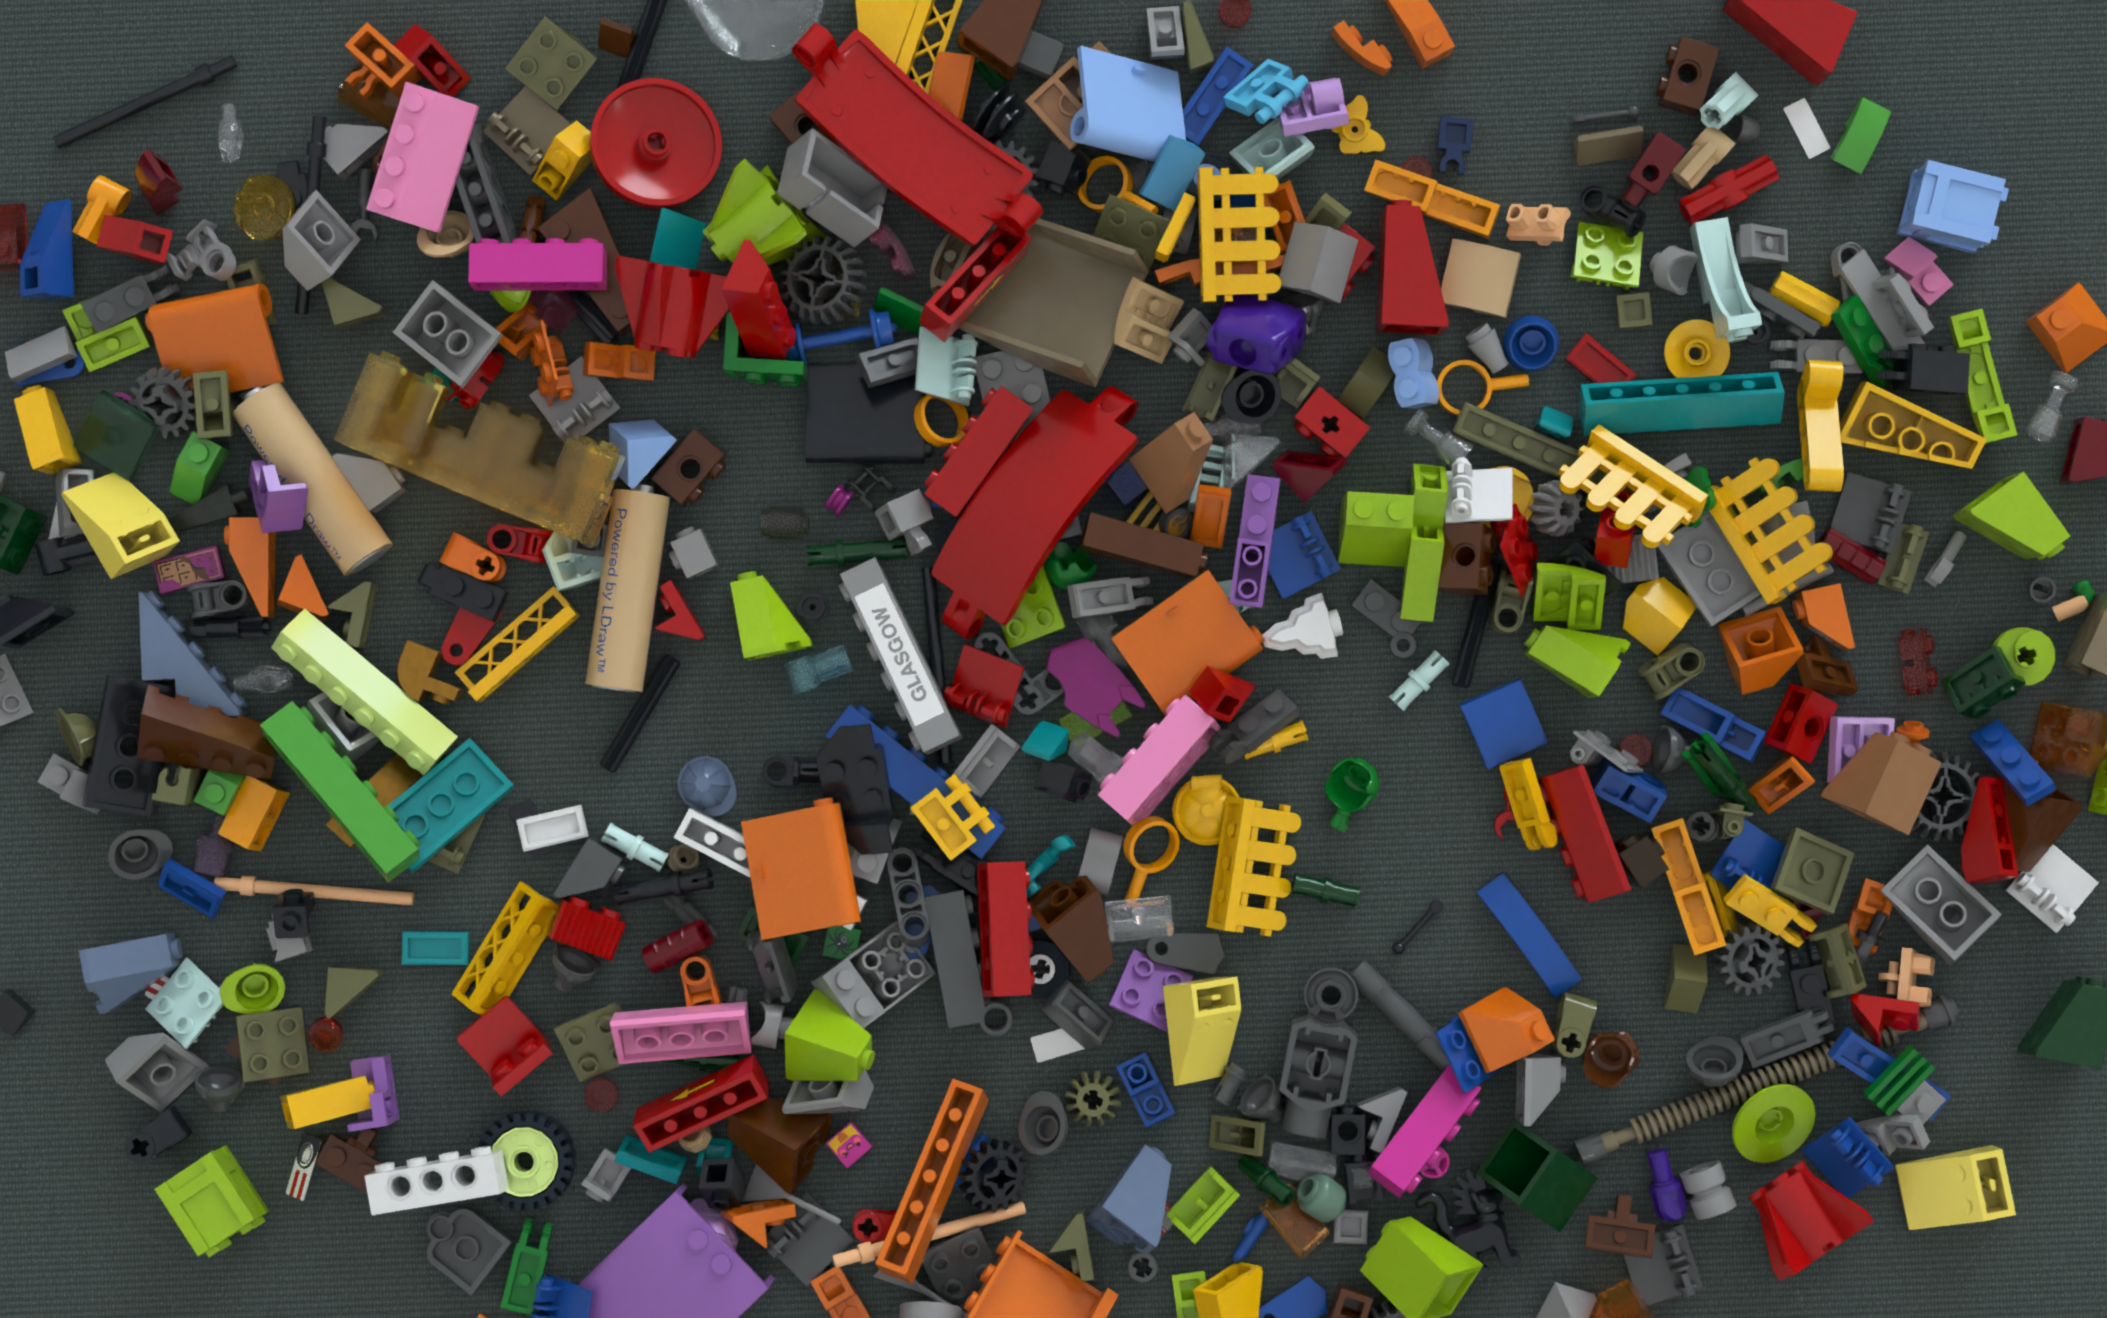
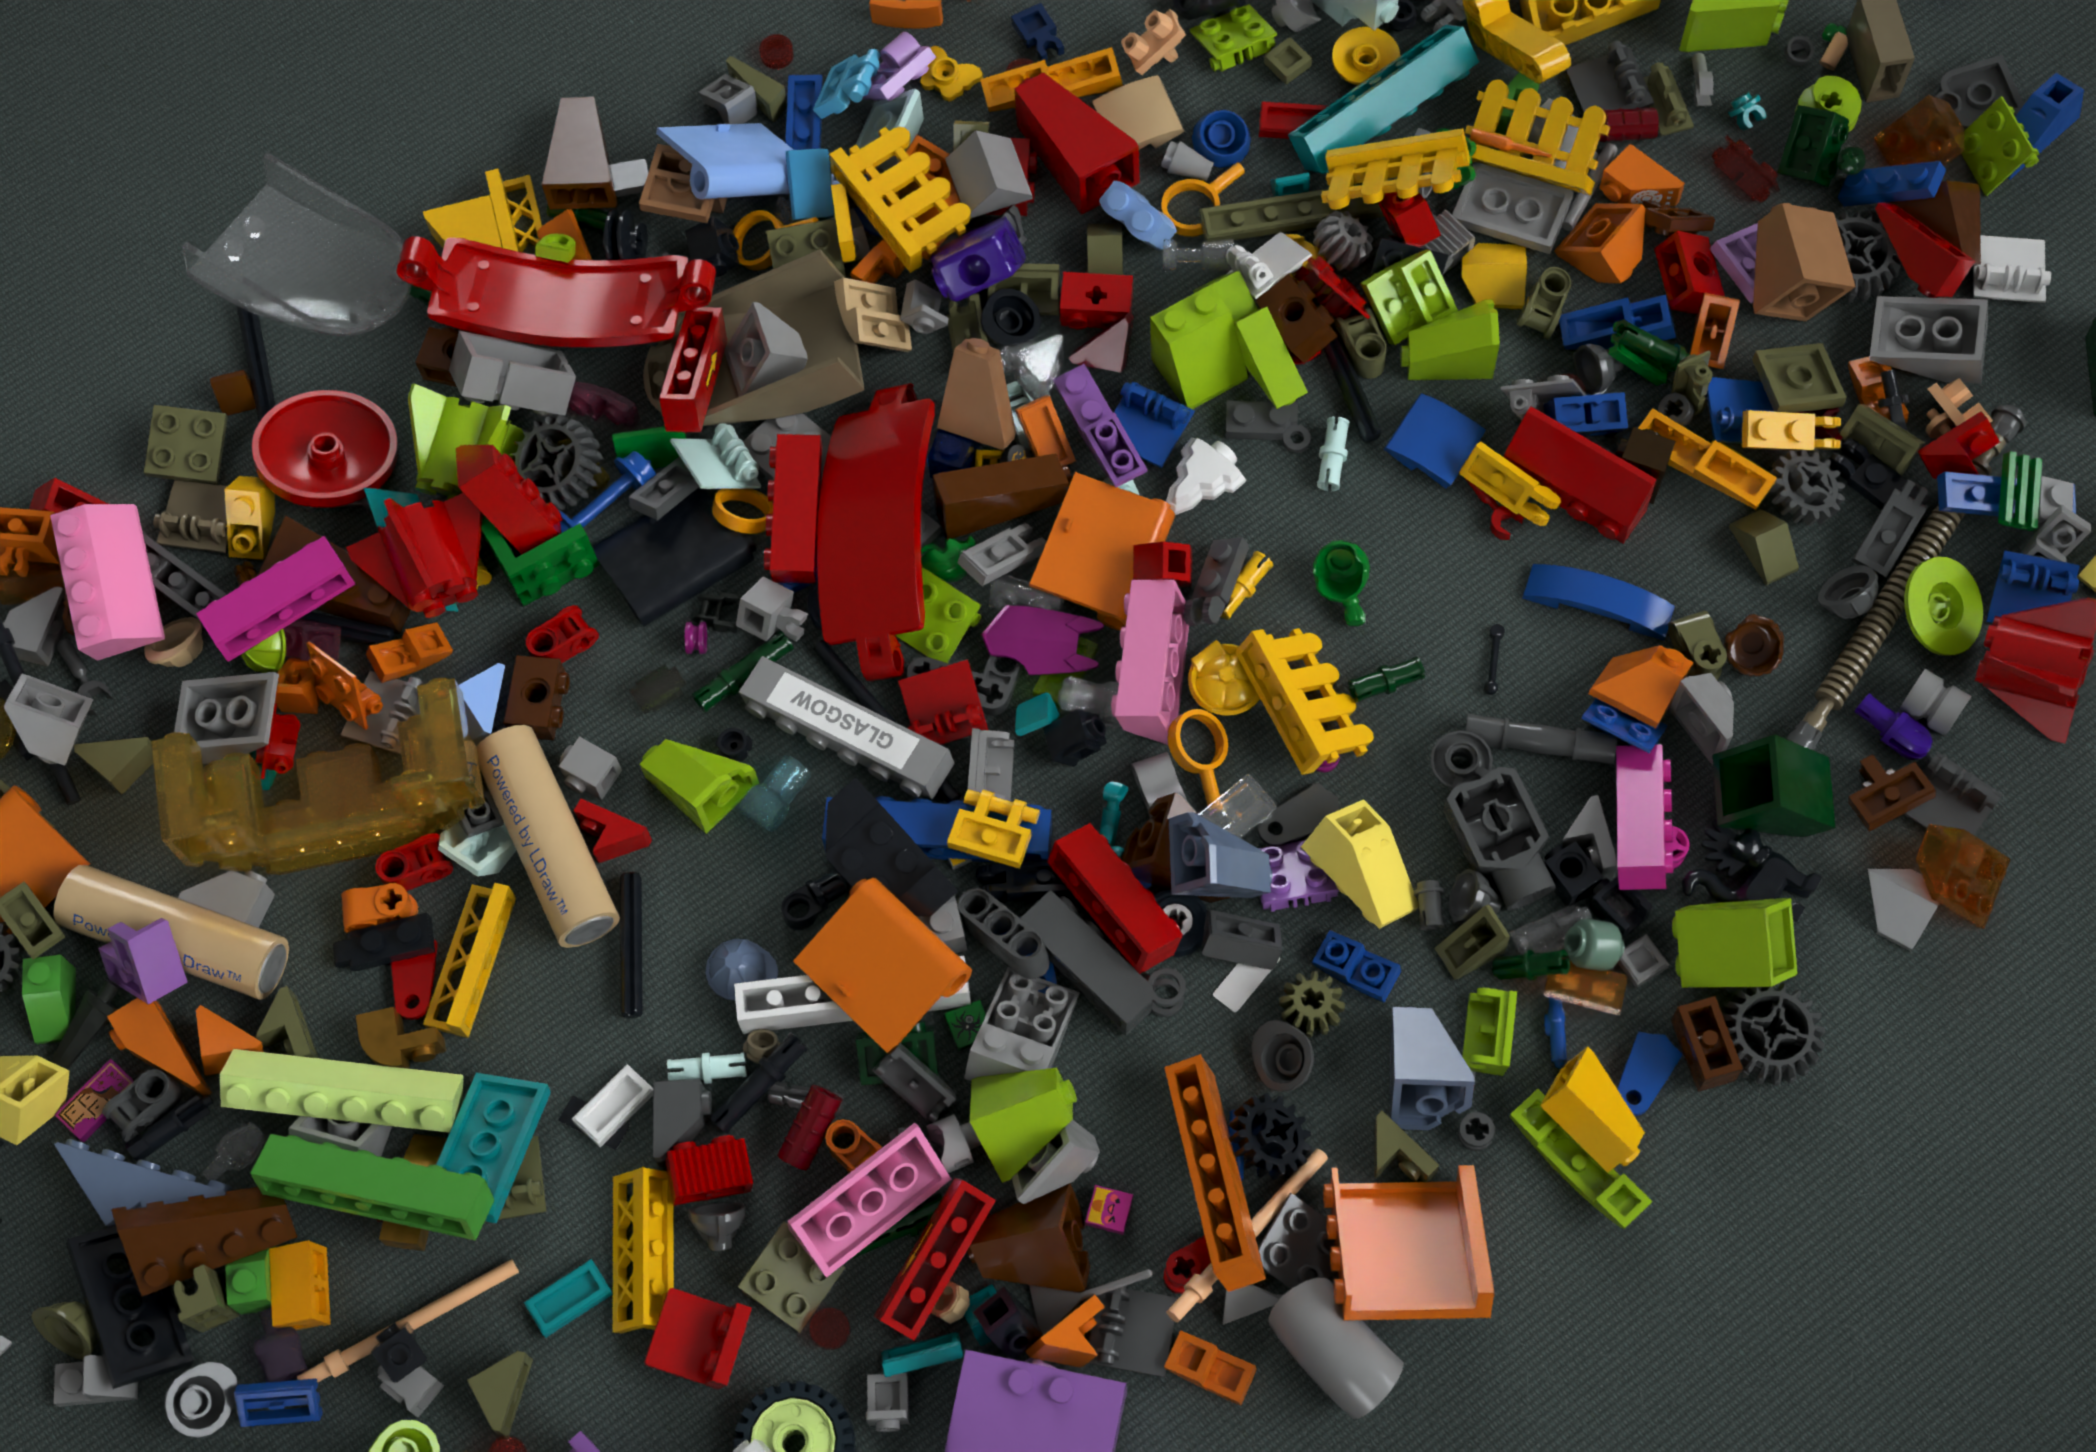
camera: 30 degrees left, 20 degrees down
(740, 430) = (562, 635): none -> red piece
(939, 89) = (556, 247): none -> lime tile
(1039, 298) = (763, 350): none -> light grey slope
(1087, 962) = (1214, 861): none -> sand blue slope
(1740, 516) = (1503, 143): none -> orange piece
(1958, 606) = (1743, 106): none -> teal plate
(2000, 717) = (1851, 160): none -> dark green axle

